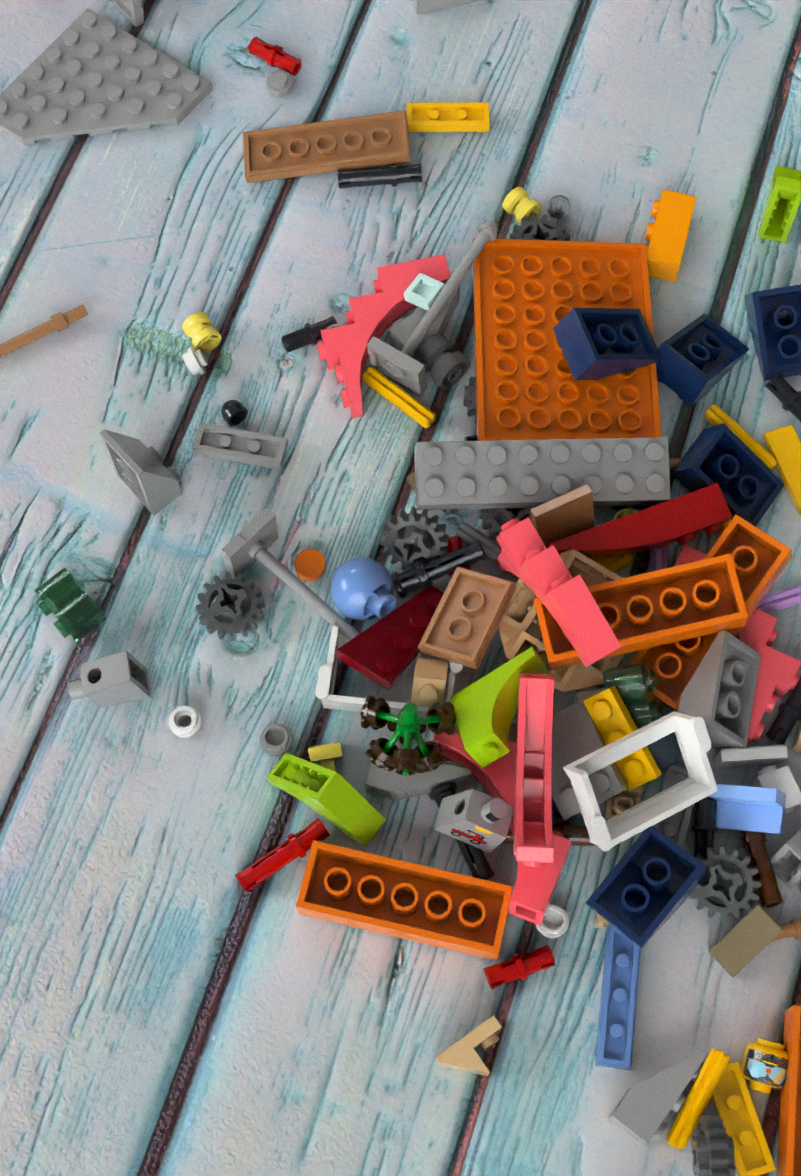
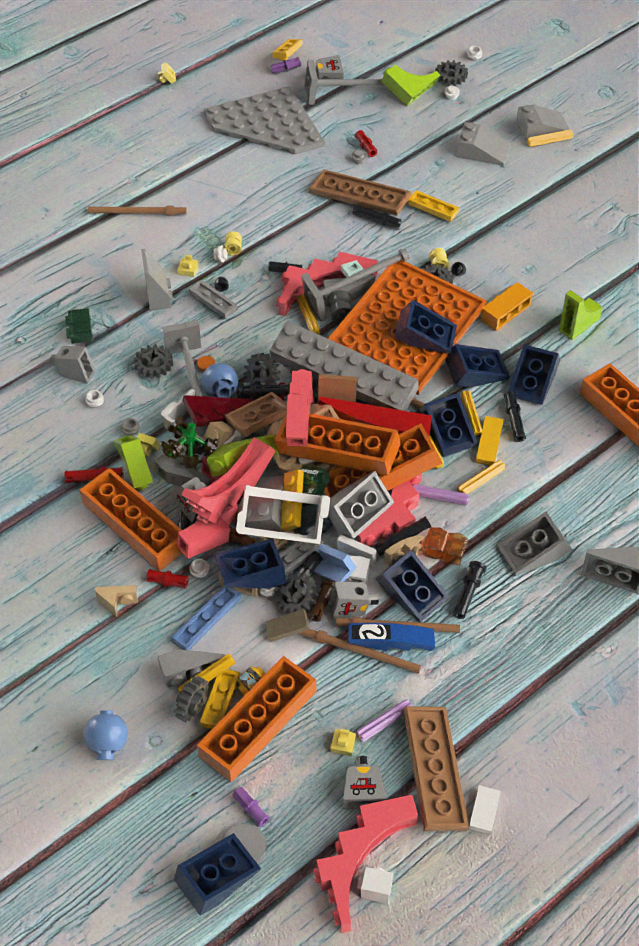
camera: 30 degrees right, 15 degrees down
(159, 408) = (188, 266): none -> light yellow tile

